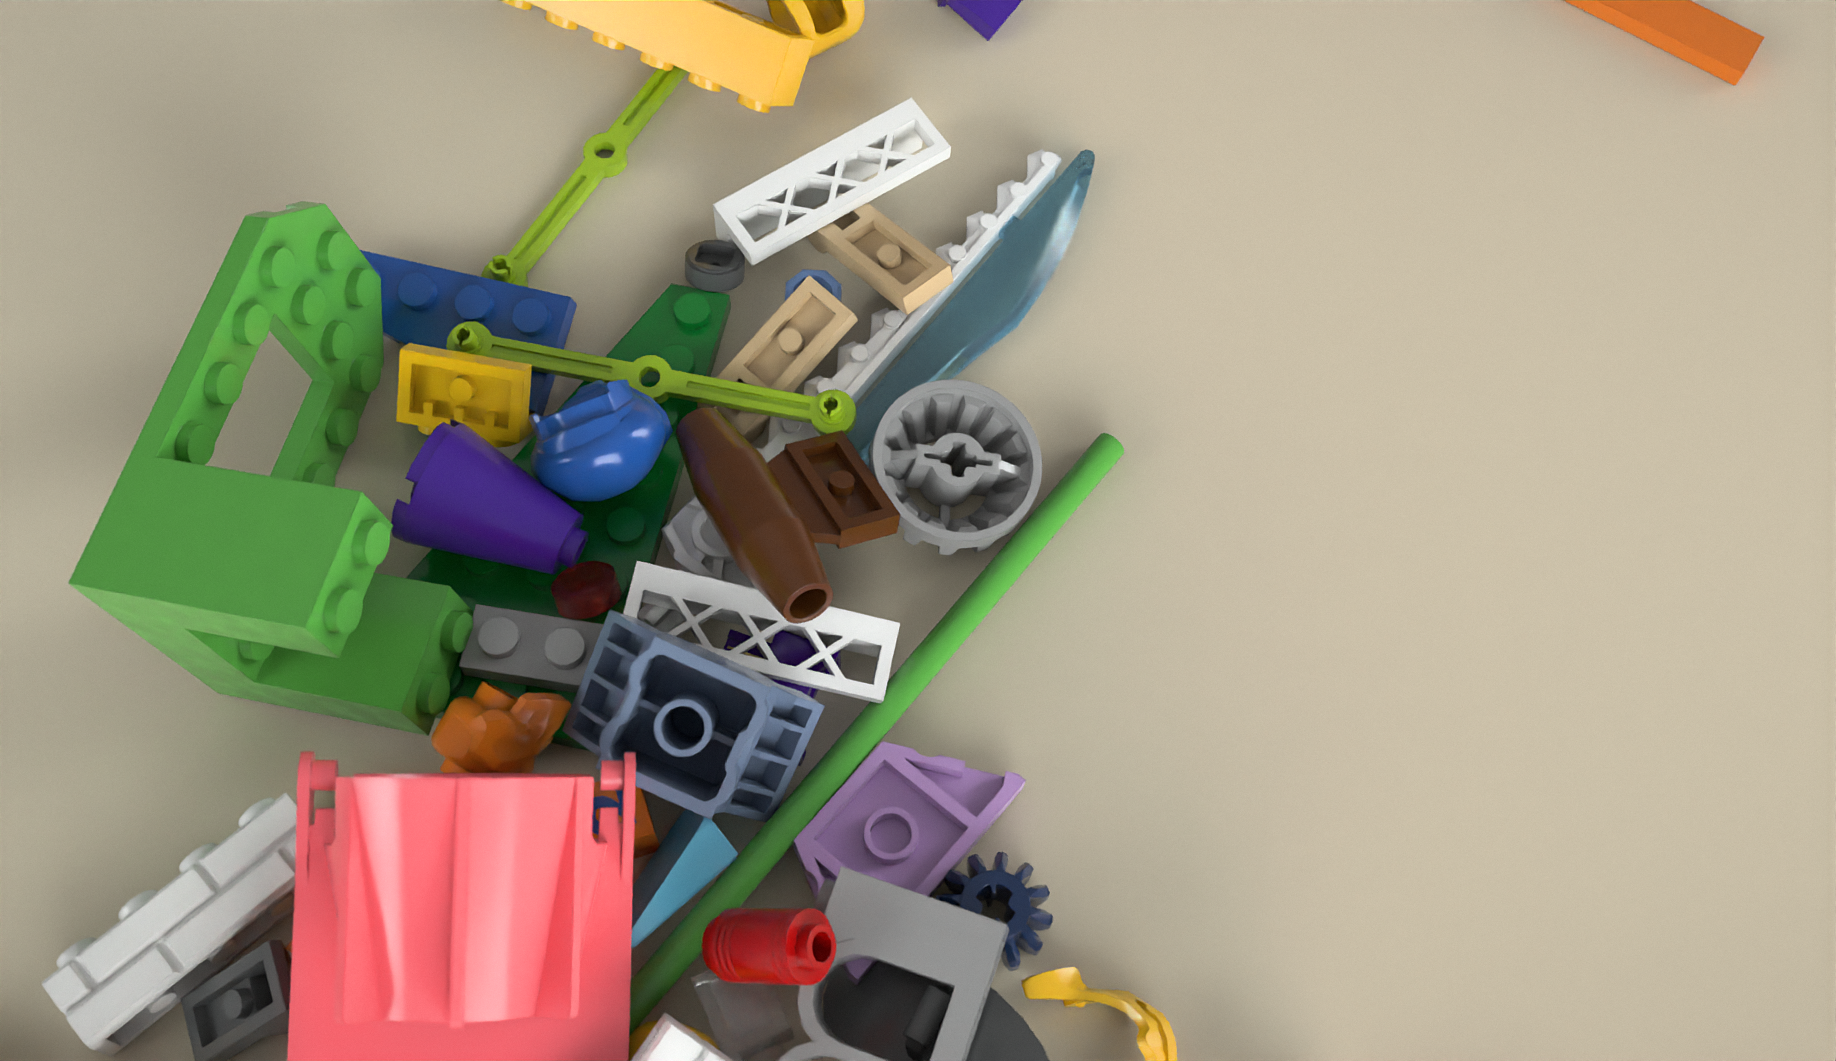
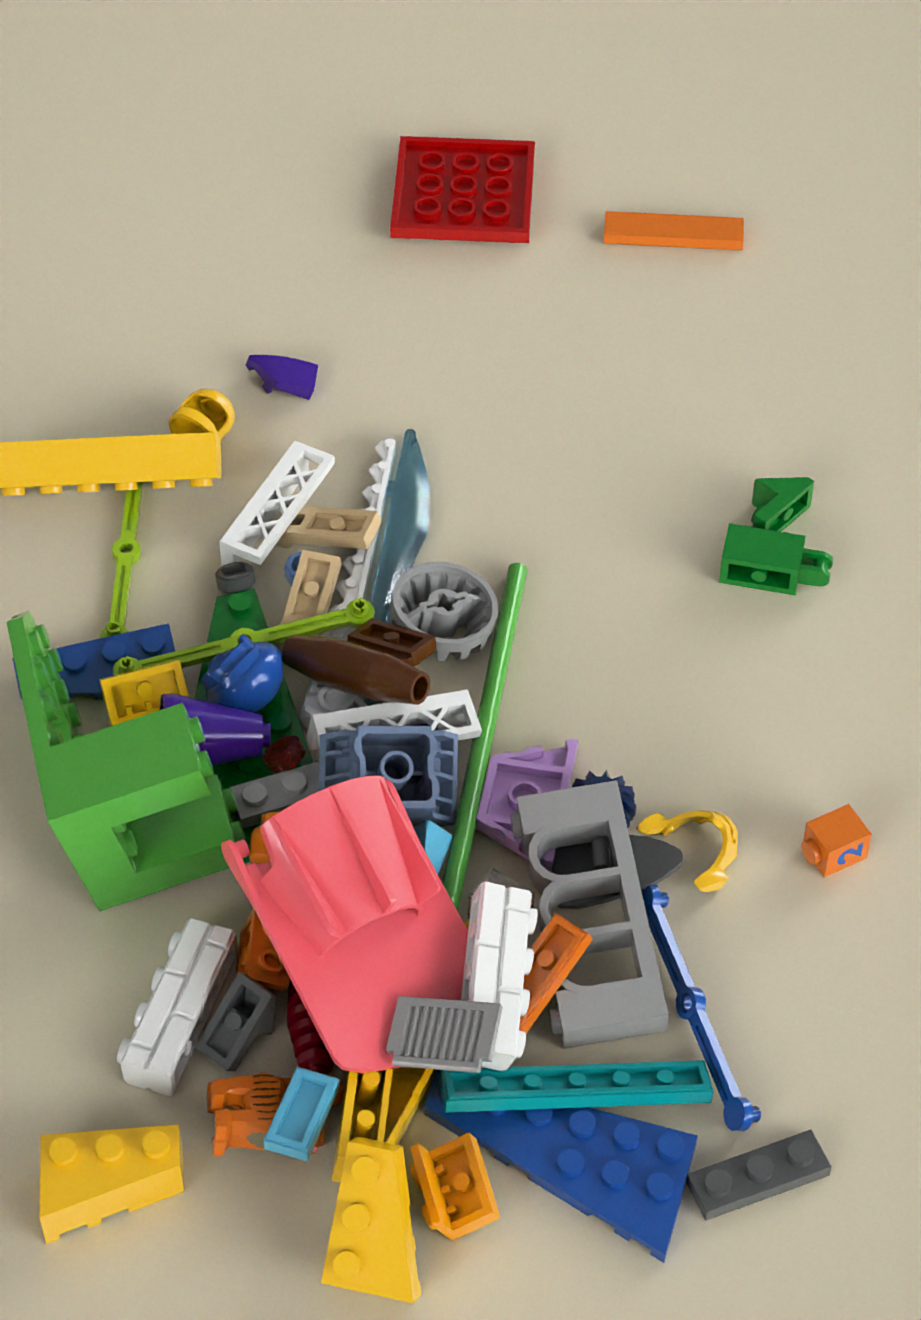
camera: 25 degrees left, 15 degrees down
(769, 946) = (504, 847): red head -> none
(1494, 621) = (771, 560): none -> green brick
(1559, 530) = (780, 501): none -> green slope

